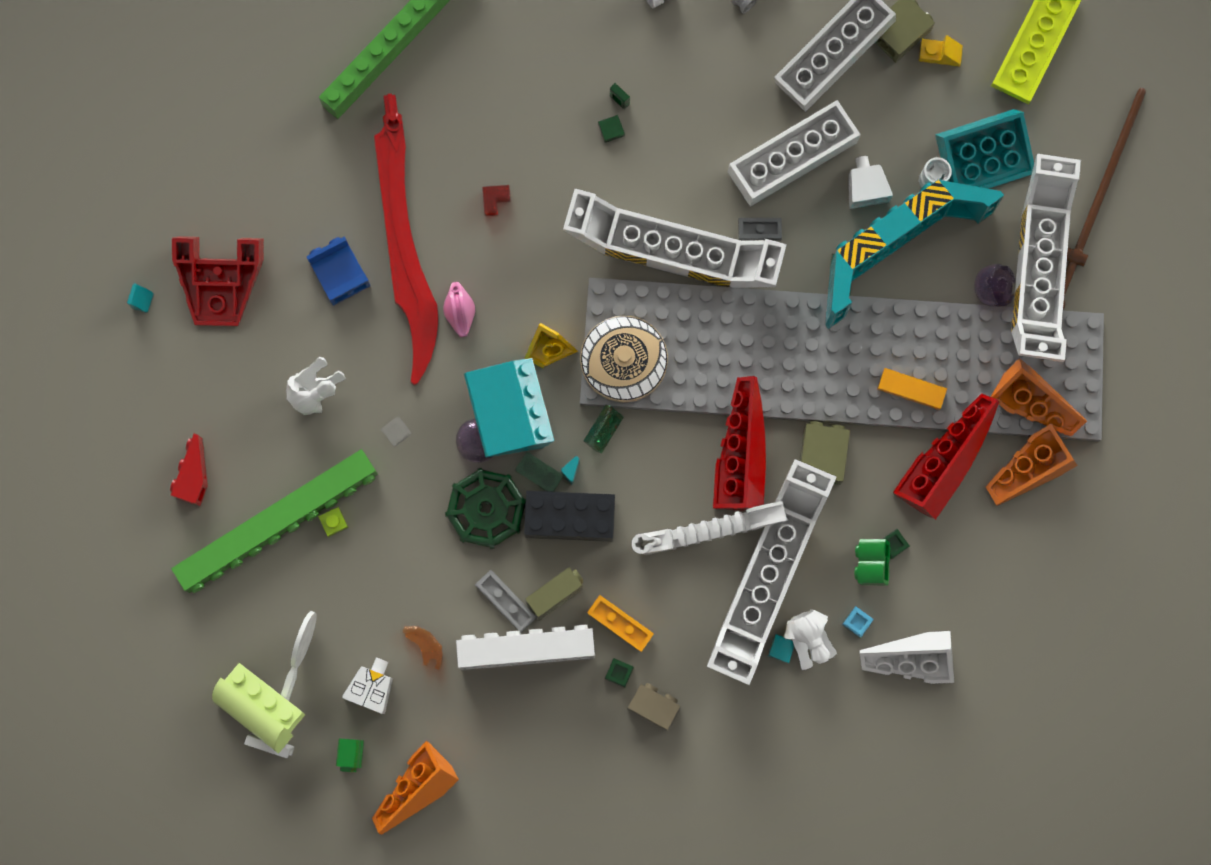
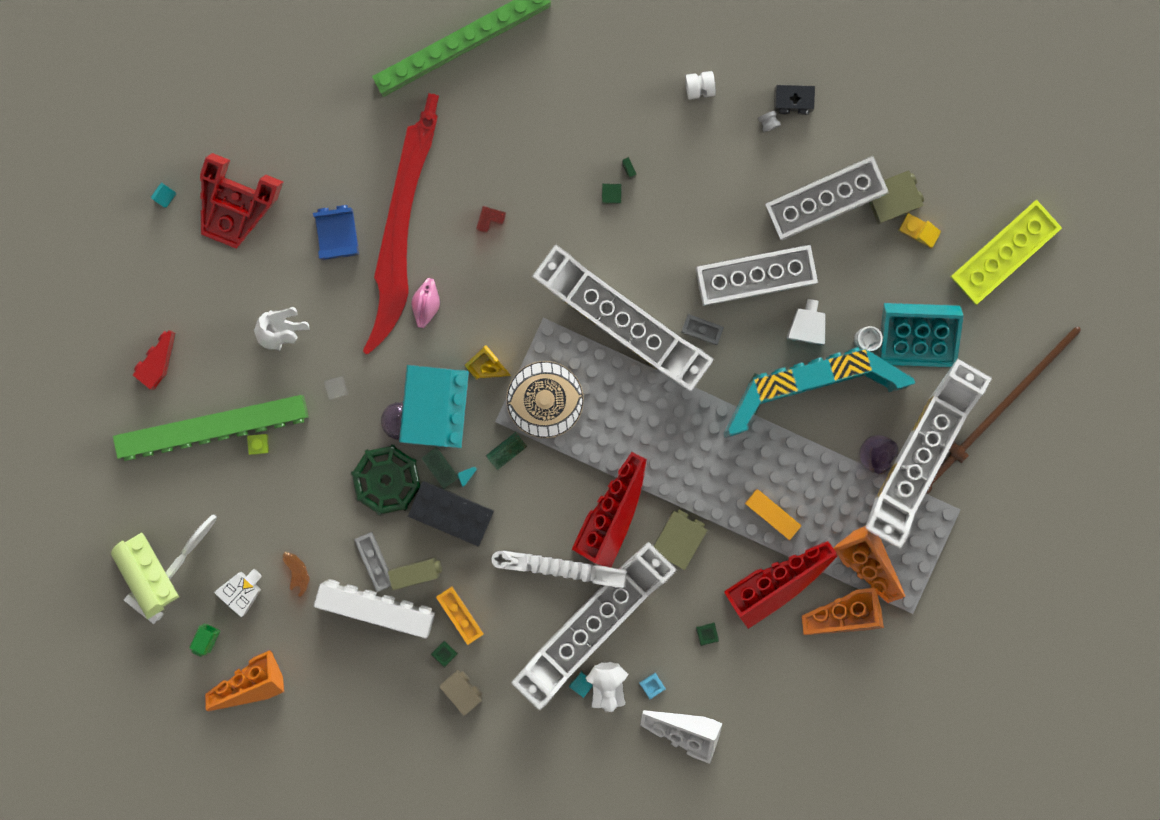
camera: 25 degrees right, 10 degrees up
(873, 562) = (683, 644): green brick -> none

